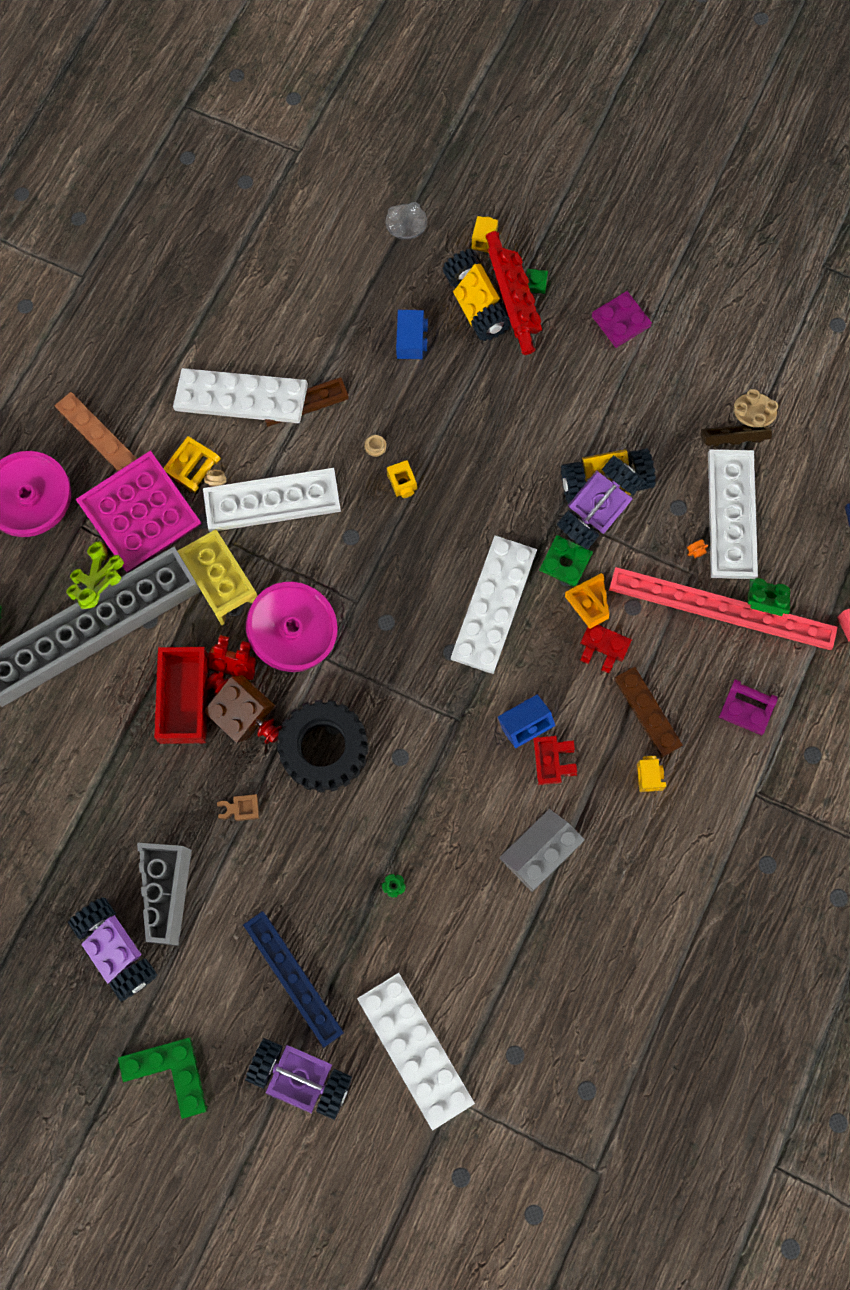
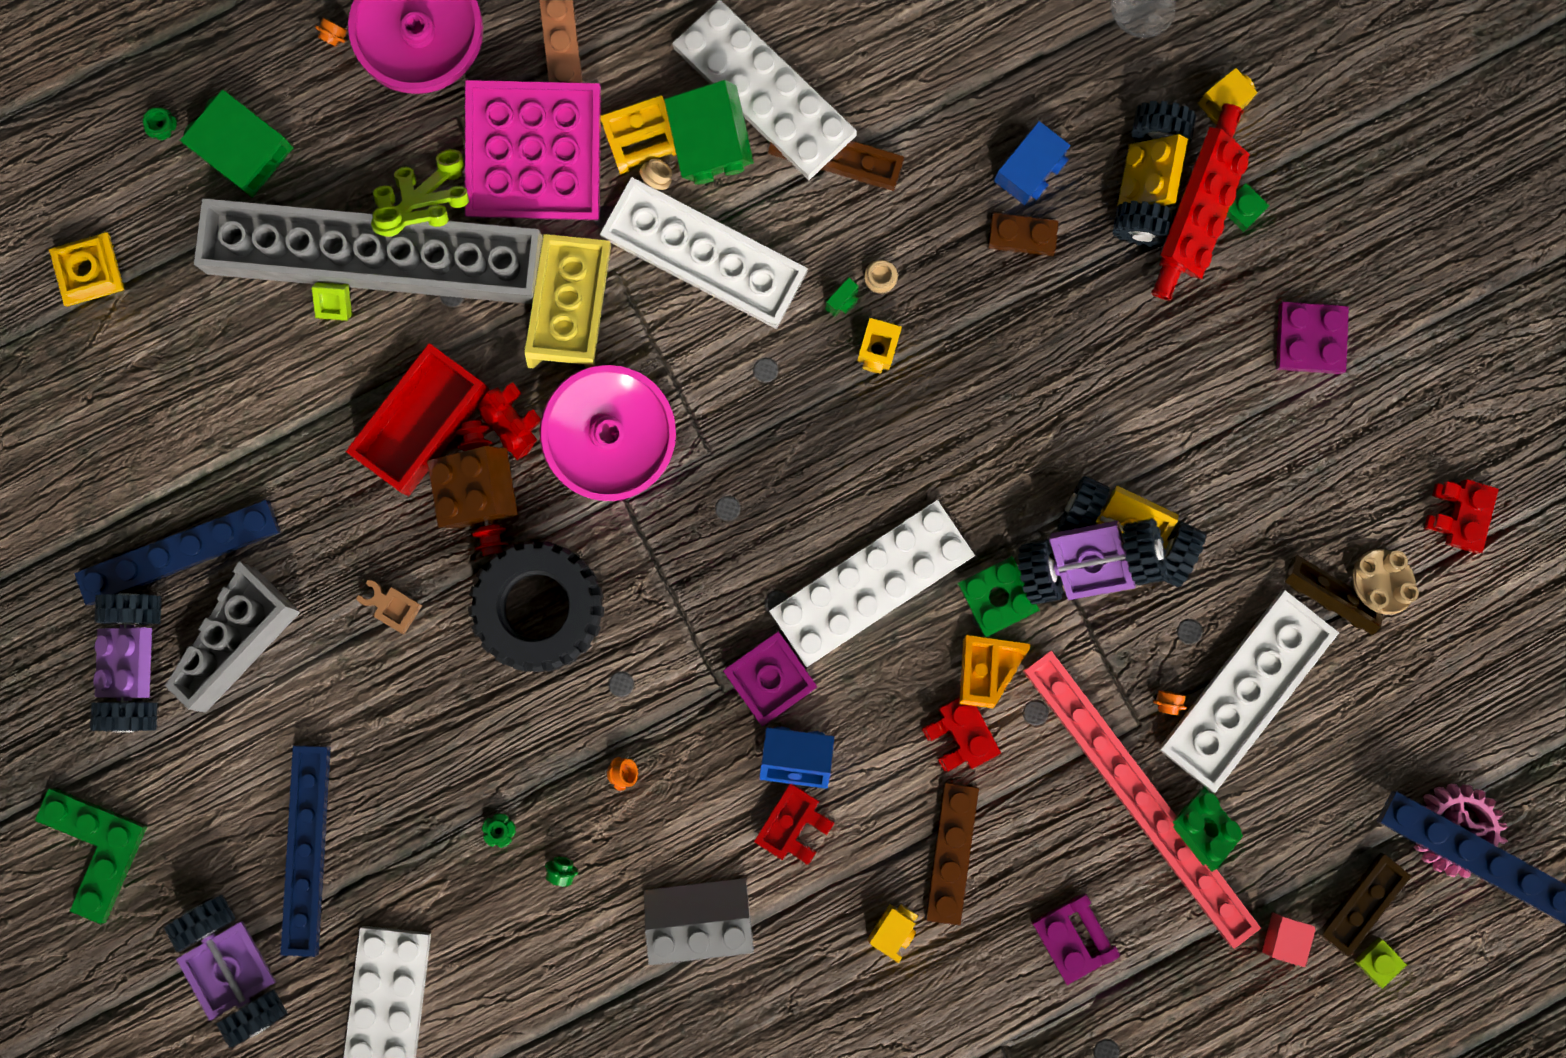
camera: 30 degrees right, 10 degrees up
(84, 669) = (331, 301): none -> lime plate
(96, 869) = (178, 552): none -> dark blue plate
(228, 435) = (709, 132): none -> green brick
(365, 469) = (843, 298): none -> green plate
(433, 373) = (1023, 234): none -> reddish brown plate
(438, 802) = (622, 773): none -> orange plate
(445, 880) = (560, 871): none -> green plate
(479, 692) = (770, 679): none -> magenta plate
(771, 347) = (1470, 515): none -> red plate

